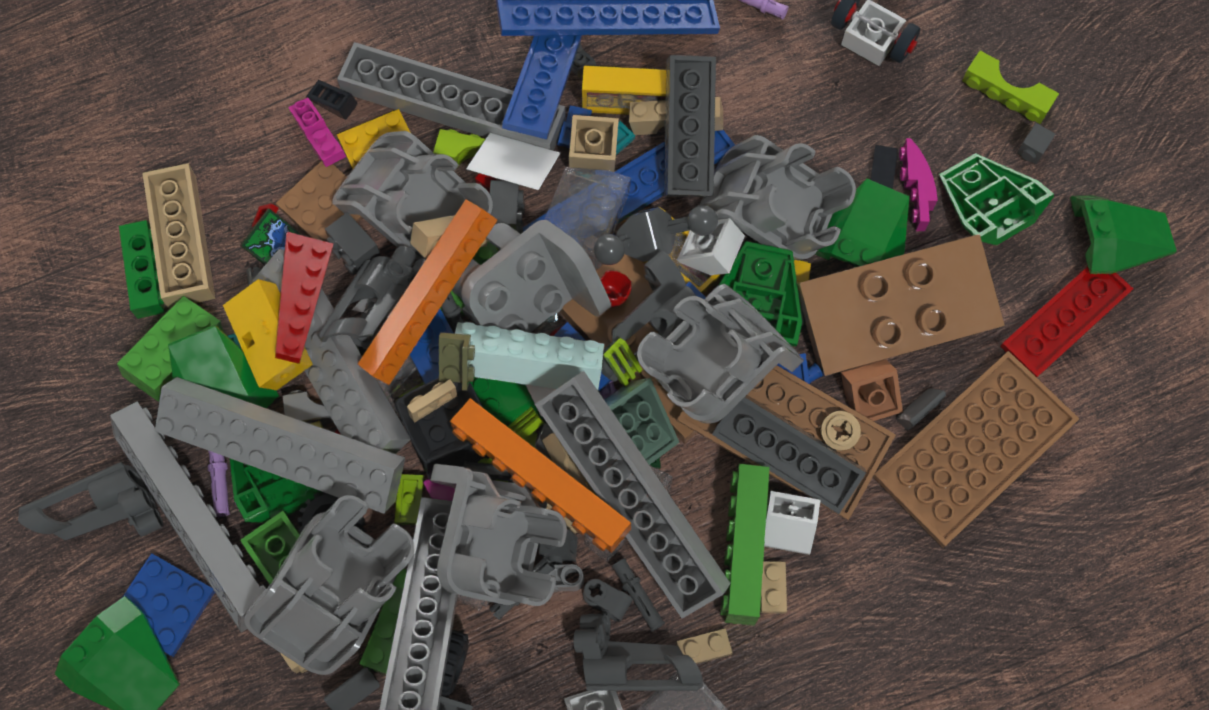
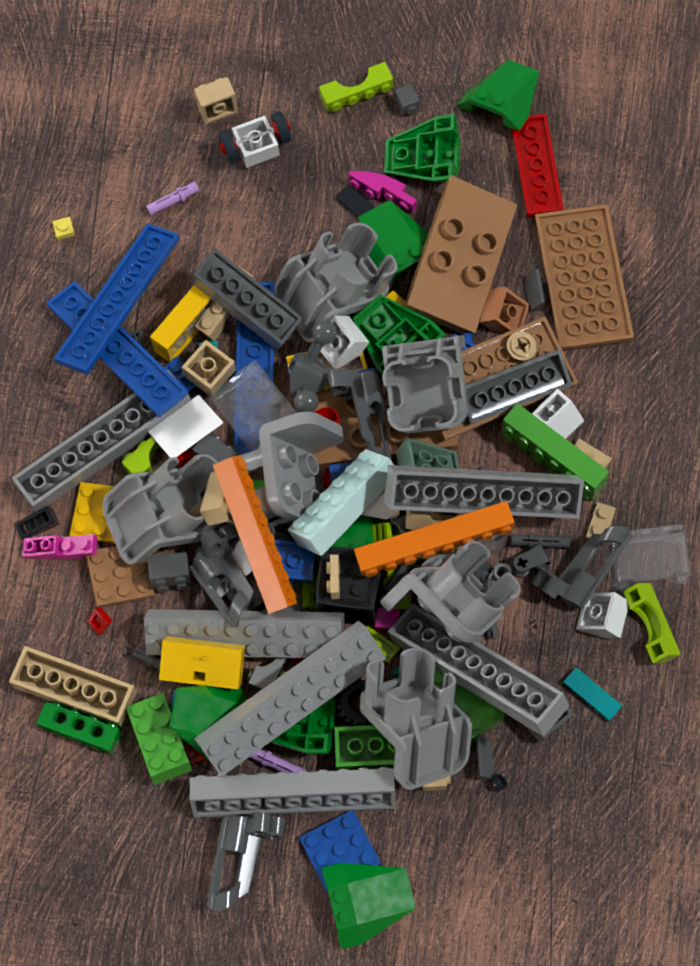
camera: 50 degrees left, 0 degrees up
(267, 237) = (124, 625): tile -> none
(302, 281) = (179, 612): red wing -> none
(456, 358) = (320, 541): olive bracket -> none
(623, 378) = (385, 442): lime tile -> none

